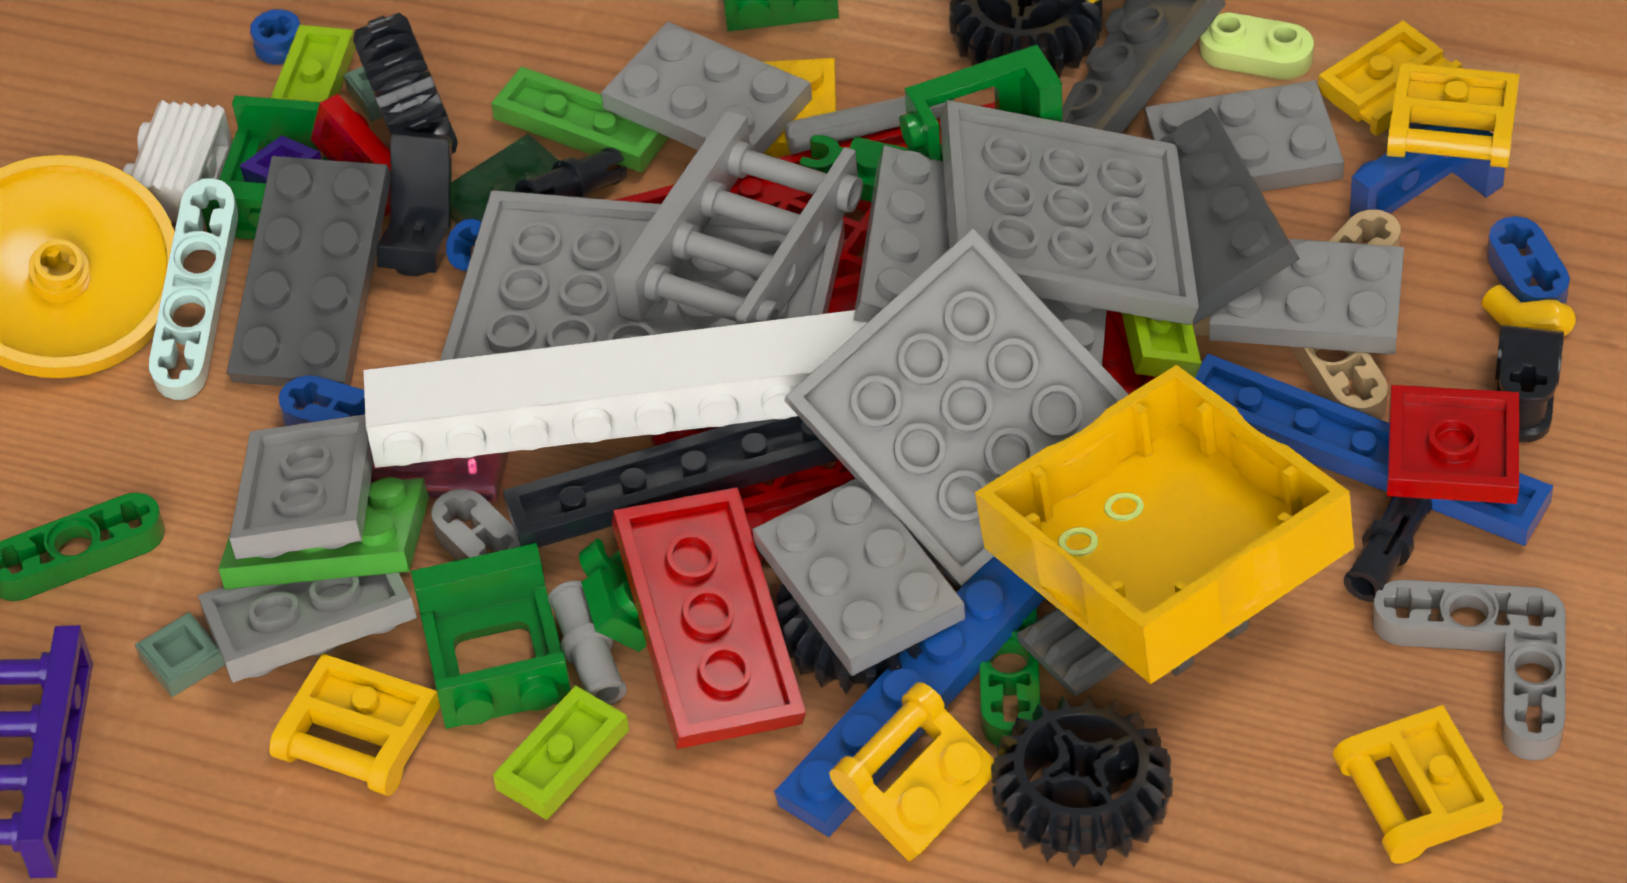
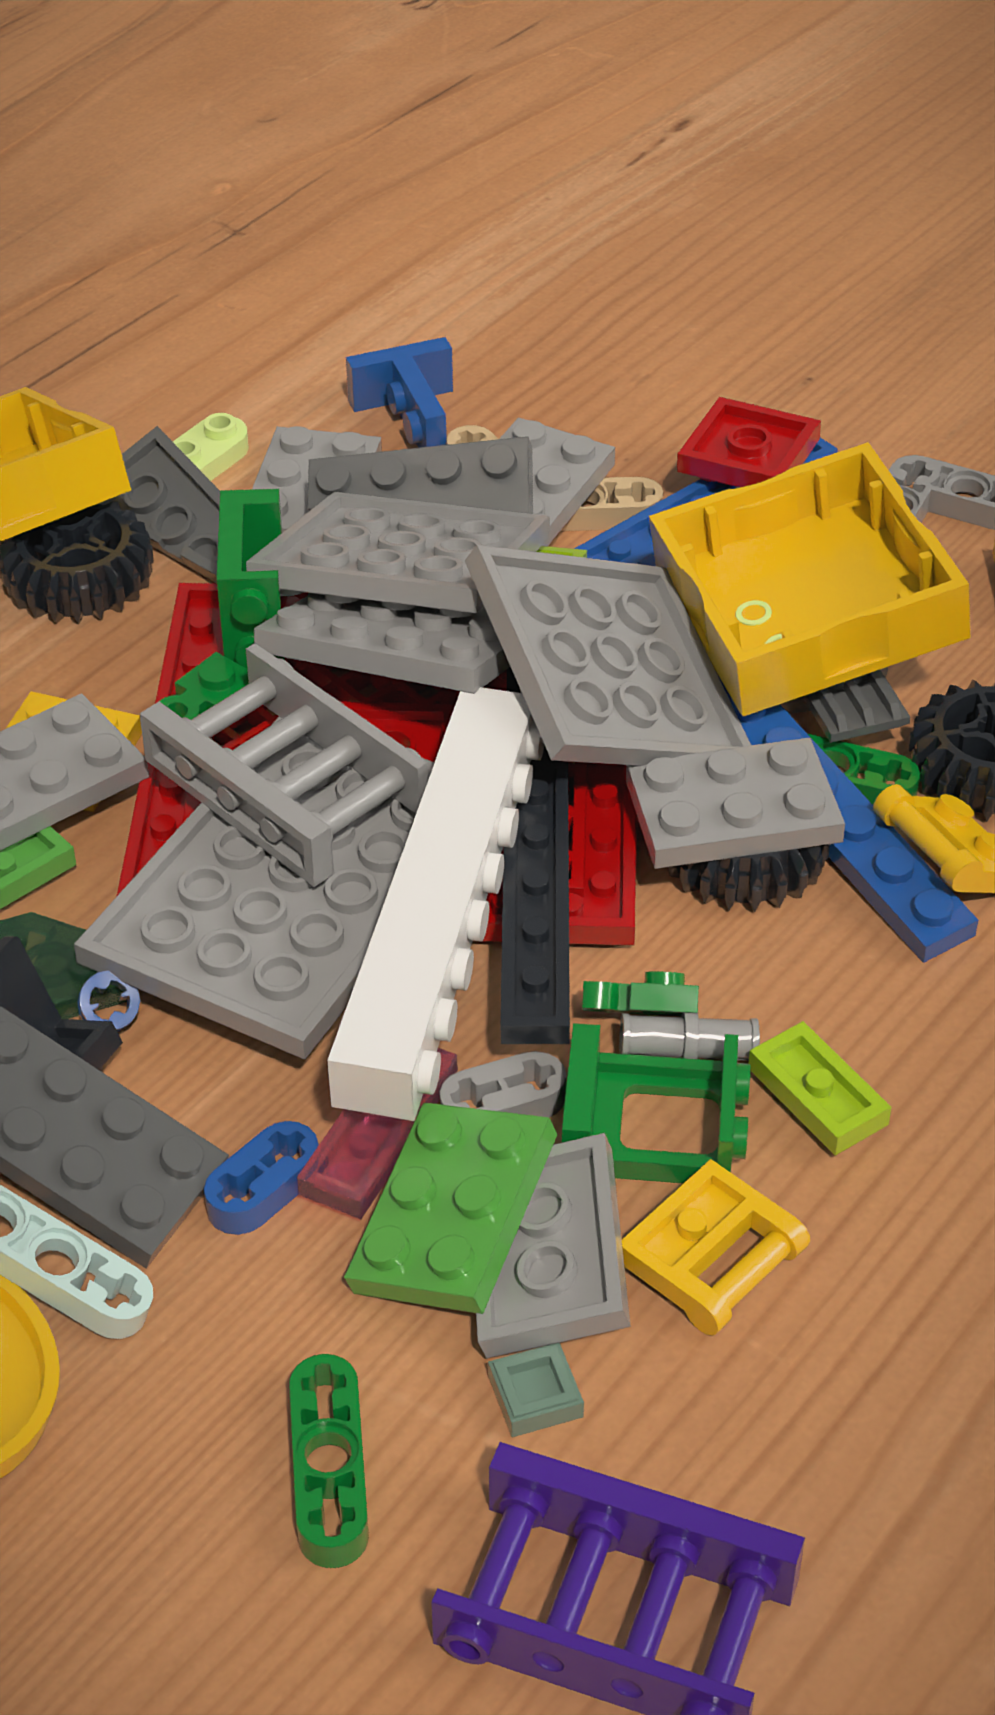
camera: 75 degrees left, 5 degrees down
(303, 488) = (417, 1180): light grey plate -> none
(576, 177) = (73, 900): black pin -> none
(707, 618) = (718, 928): plate -> none
(849, 123) = (145, 675): light grey axle -> none
(1367, 78) = (302, 389): yellow plate -> none
(1453, 100) = (398, 330): yellow plate -> none
(1530, 365) = (668, 406): black piece -> none
(1535, 314) = (607, 400): yellow arm -> none
(1538, 263) = (551, 384): blue beam -> none

